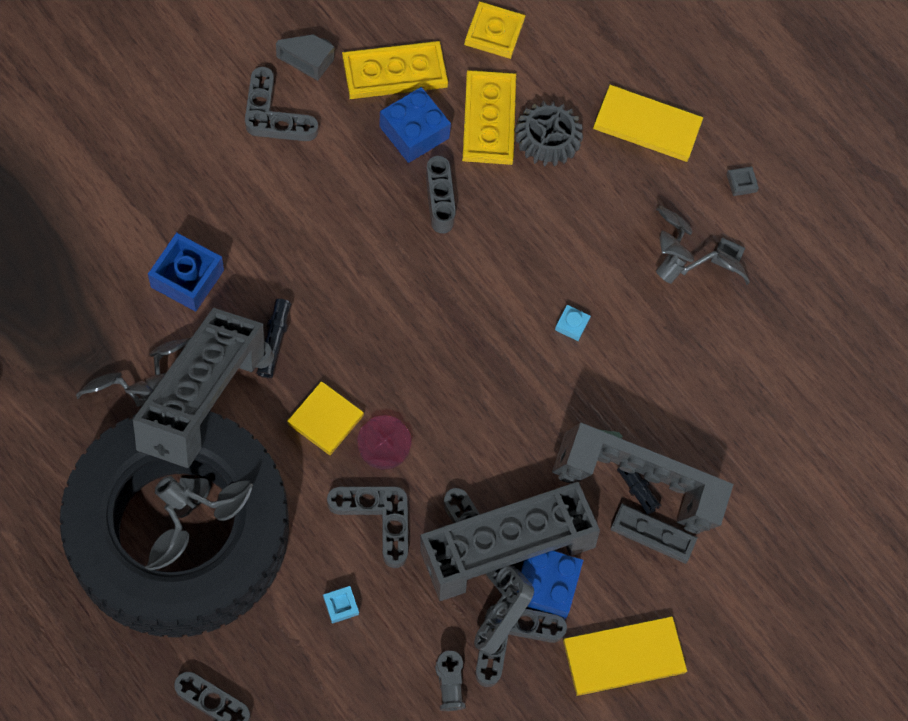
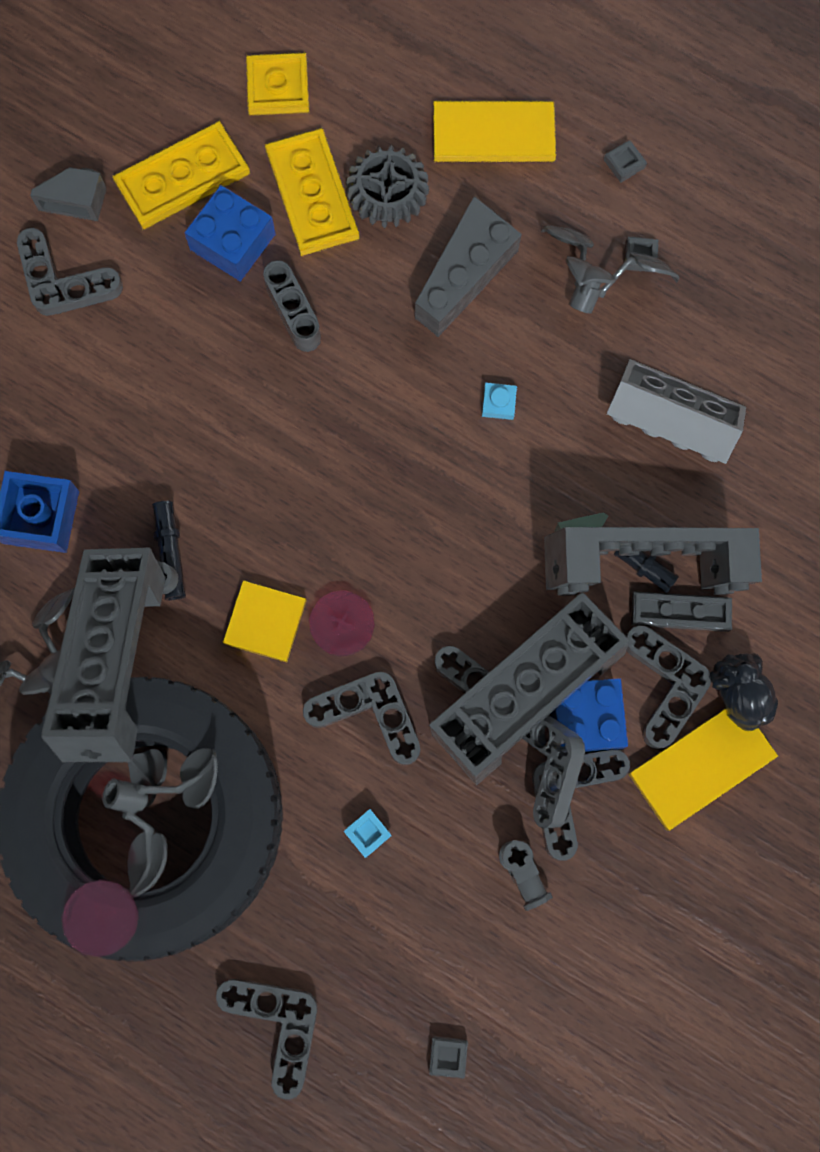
camera: 15 degrees left, 10 degrees up
(118, 573) = (100, 918): none -> clear pink tile
(589, 211) = (469, 262): none -> dark grey wedge
(629, 590) = (680, 686): none -> dark grey beam
(679, 610) = (745, 690): none -> black hair
(708, 380) = (677, 412): none -> light grey slope

